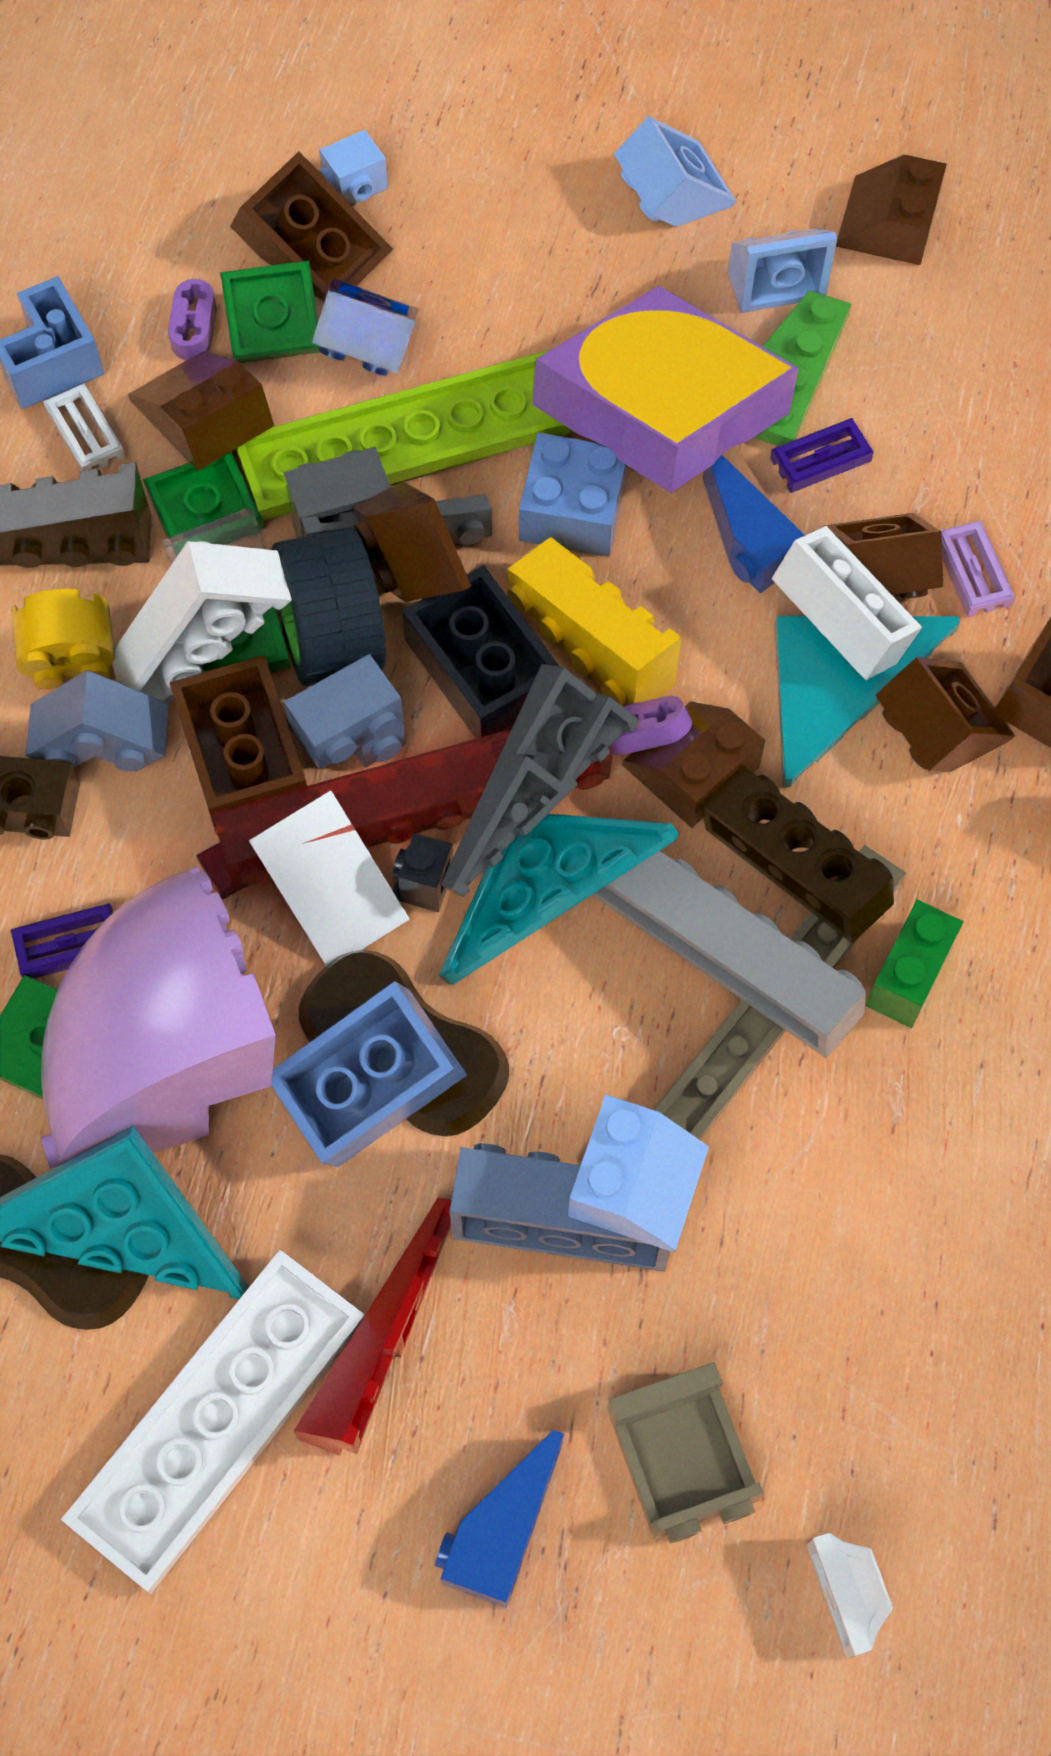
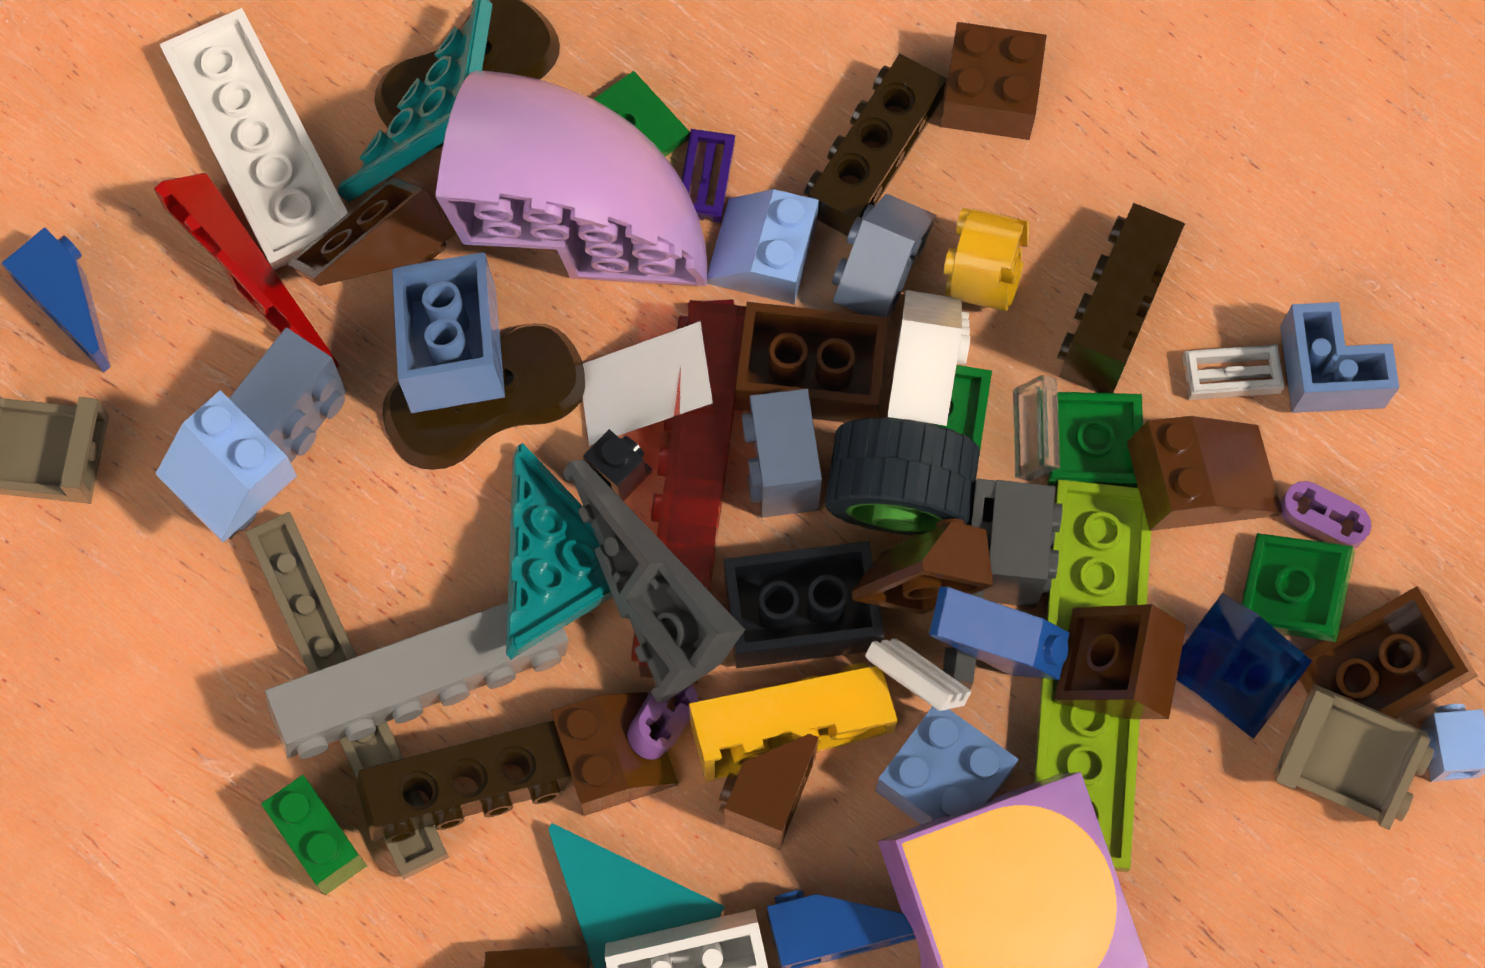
camera: 115 degrees right, 5 degrees up
(122, 841) = (764, 244): none -> light blue slope
(298, 1202) = (384, 232): none -> reddish brown slope
(402, 223) = (1354, 756): none -> dark tan panel
(411, 396) = (1122, 661): none -> reddish brown slope
(439, 469) = (999, 635): none -> slope
(504, 529) = (917, 674): none -> white tile
(674, 592) = (768, 790): none -> reddish brown slope

